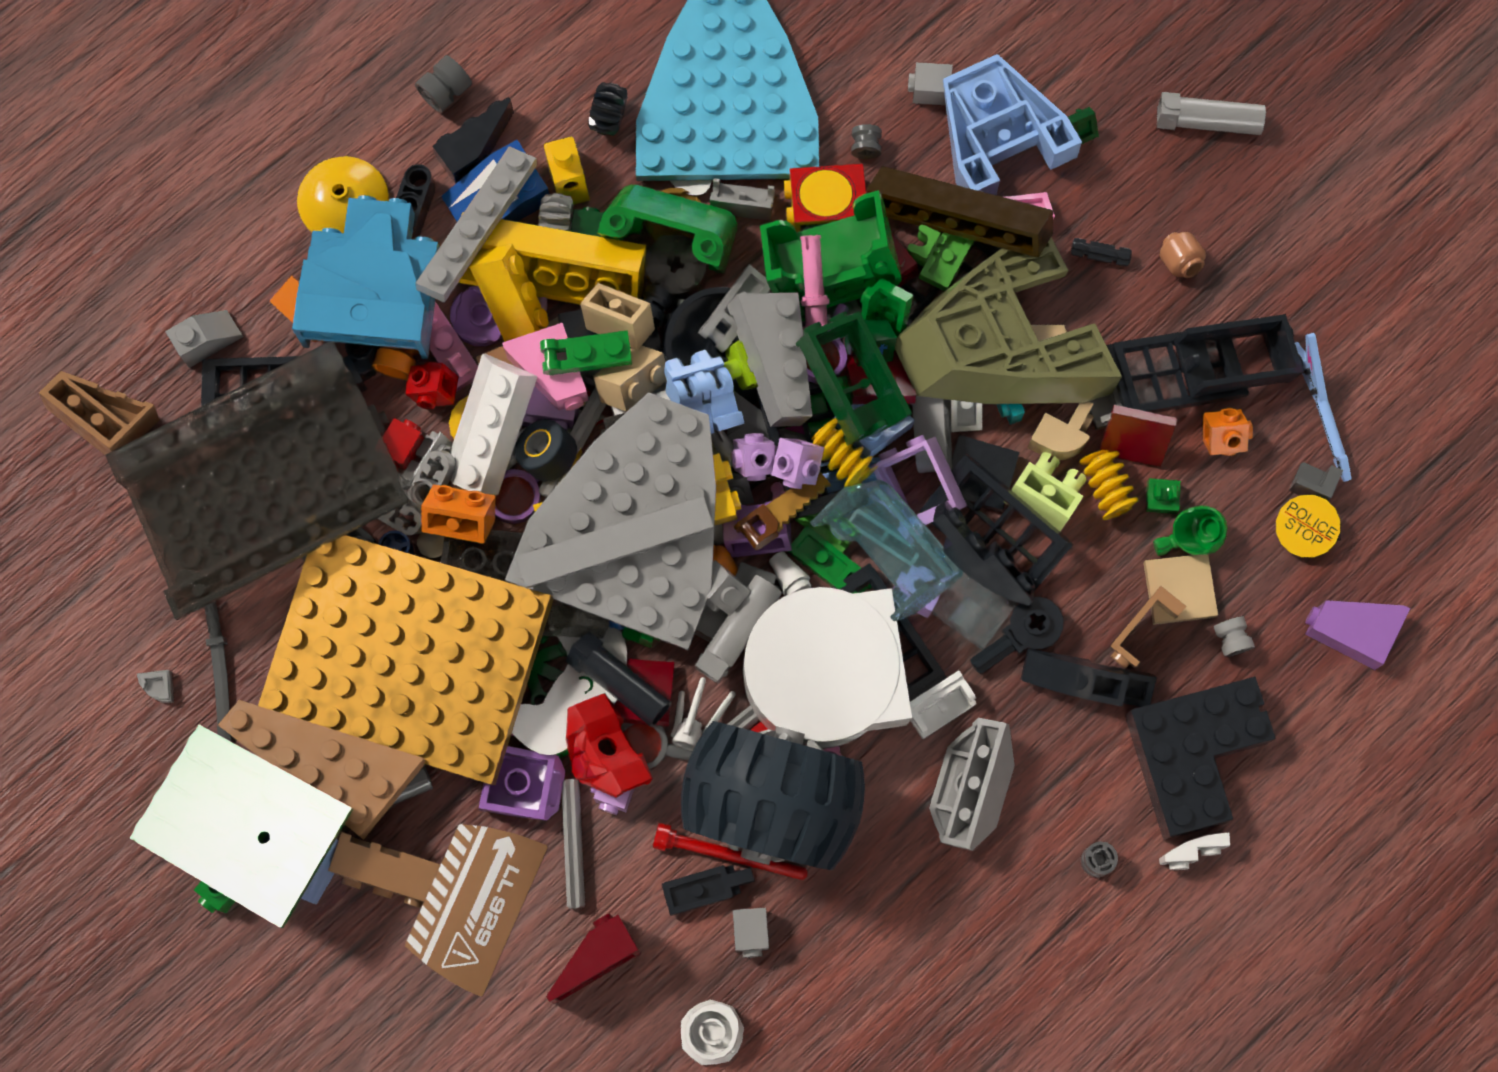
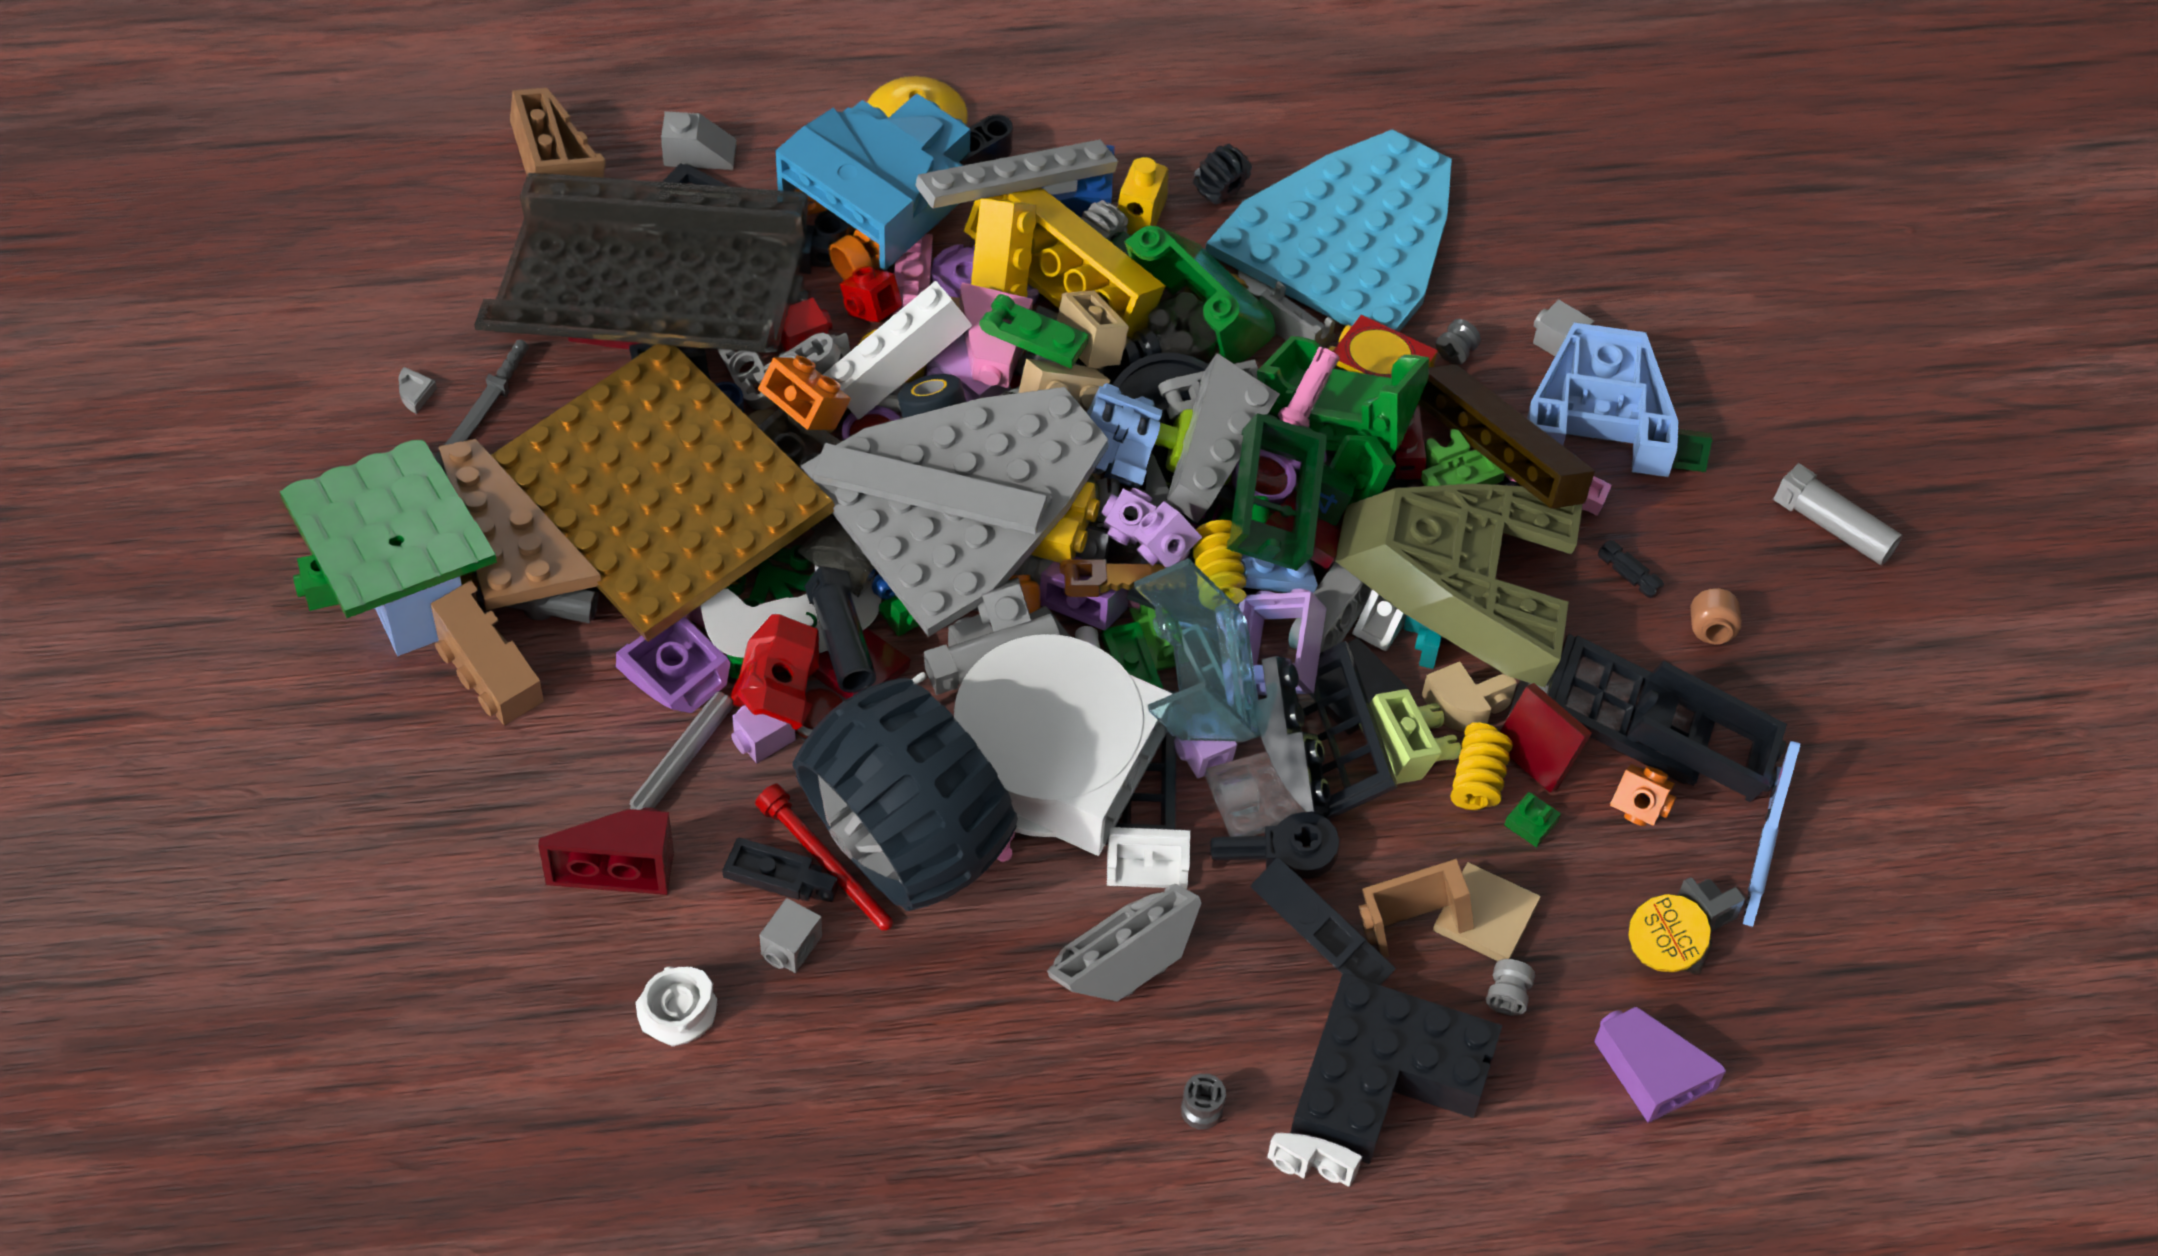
camera: 30 degrees right, 20 degrees down
(443, 84) = (1083, 74): dark grey wheel -> none
(473, 141) = (1063, 128): black slope -> none
(474, 904) = (543, 741): medium nougat sticker -> none
(1196, 531) = (1540, 863): green hair -> none

